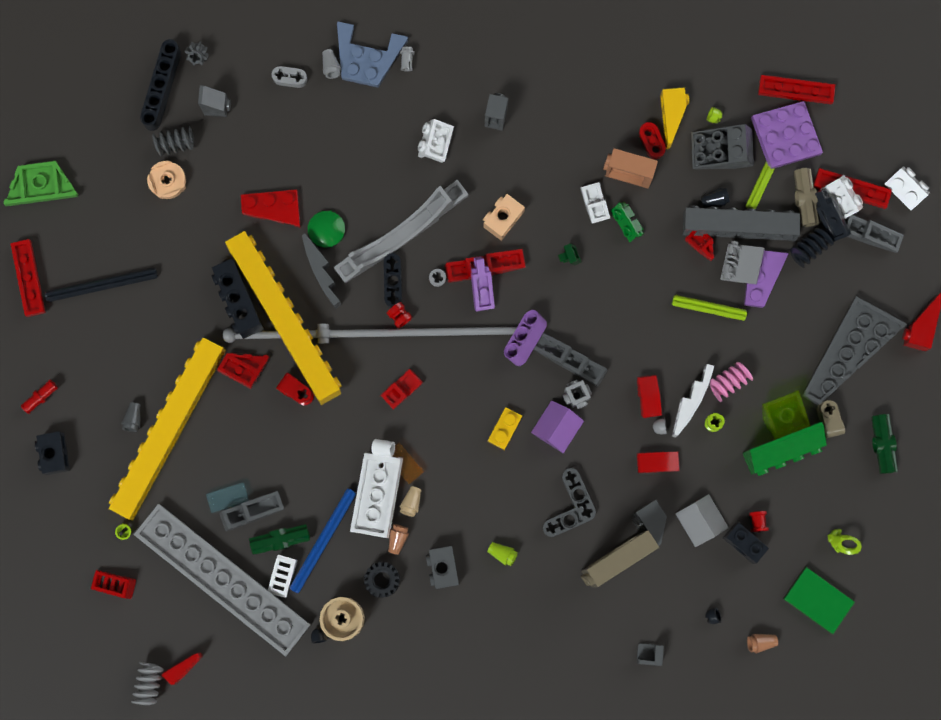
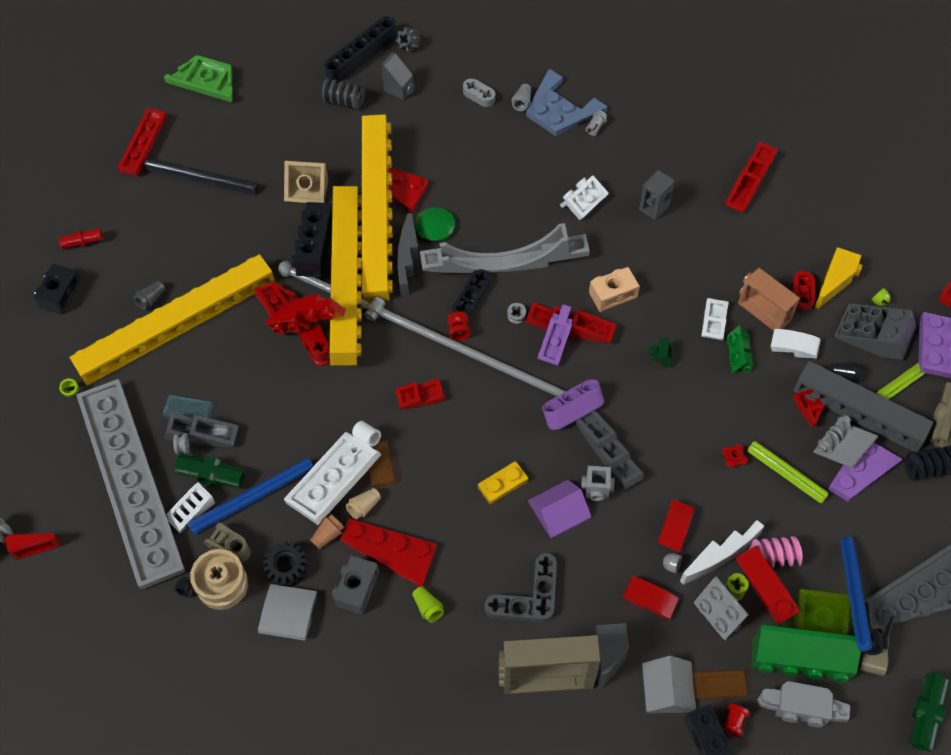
camera: 30 degrees right, 20 degrees down
(125, 587) = (27, 433): red slope -> none
(157, 175) = (320, 130): light nougat plate -> none
(196, 247) = (305, 181): none -> tan slope
(245, 531) = (181, 443): none -> light grey bush
(270, 241) = (376, 208): none -> yellow brick
(275, 375) = (302, 312): none -> red slope
(326, 587) = (228, 540): none -> dark tan piece
(405, 614) = (287, 612): none -> light grey slope
(456, 525) = (390, 549): none -> red wing
(562, 50) = (751, 177): none -> red slope
(665, 320) = (734, 461): none -> red plate
(667, 192) = (792, 341): none -> white slope
(712, 446) = (720, 608): none -> light grey hinge
(735, 500) = (719, 685): none -> clear orange tile
(737, 412) = (767, 585): none -> red slope
(800, 483) = (804, 703): none -> light grey hinge
(802, 387) = (856, 596): none -> blue axle
(827, 416) = (878, 642): none -> black plant

